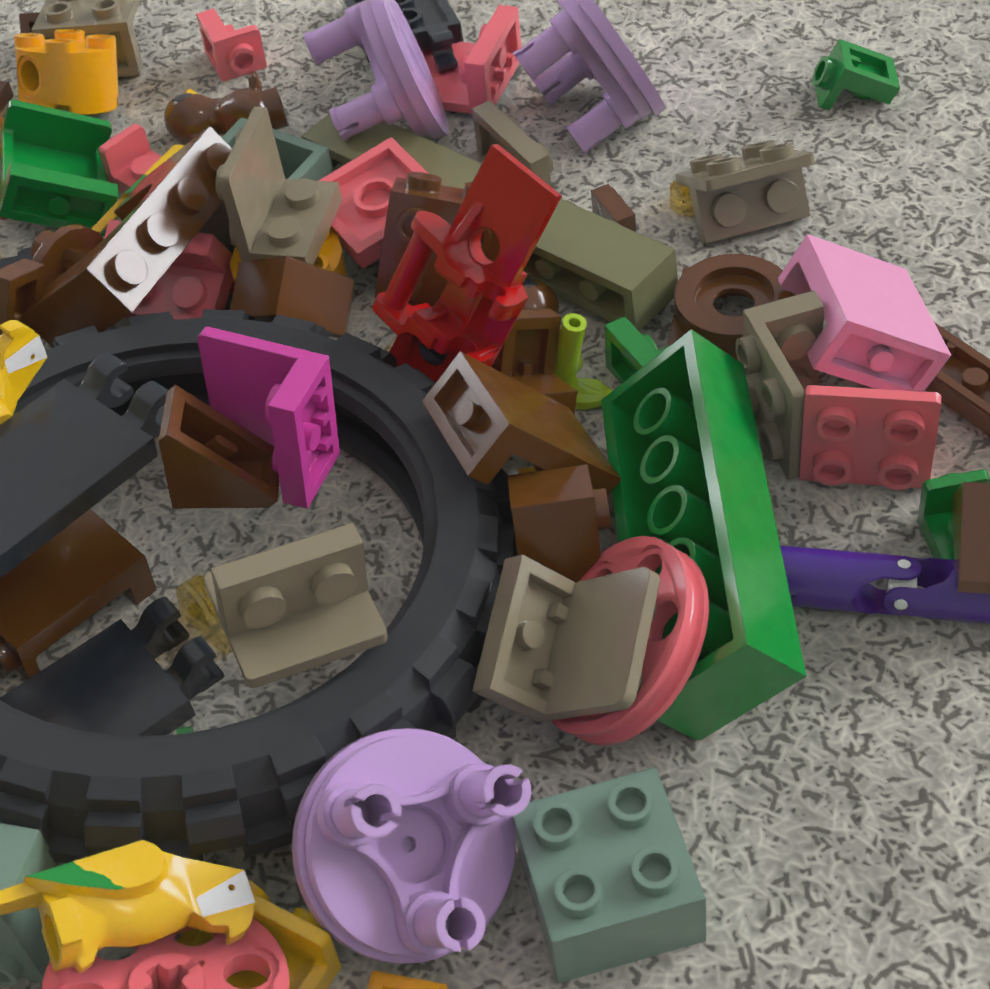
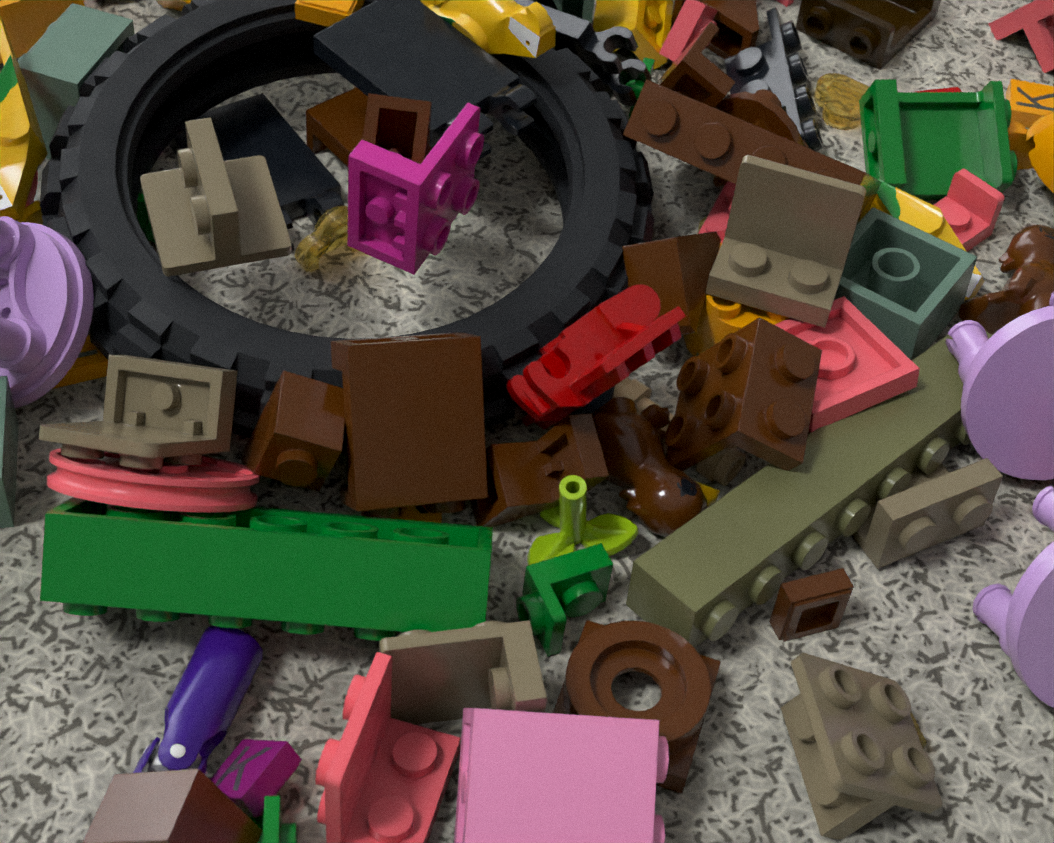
camera: 85 degrees right, 0 degrees up
(894, 526) = (256, 771): none -> magenta tile

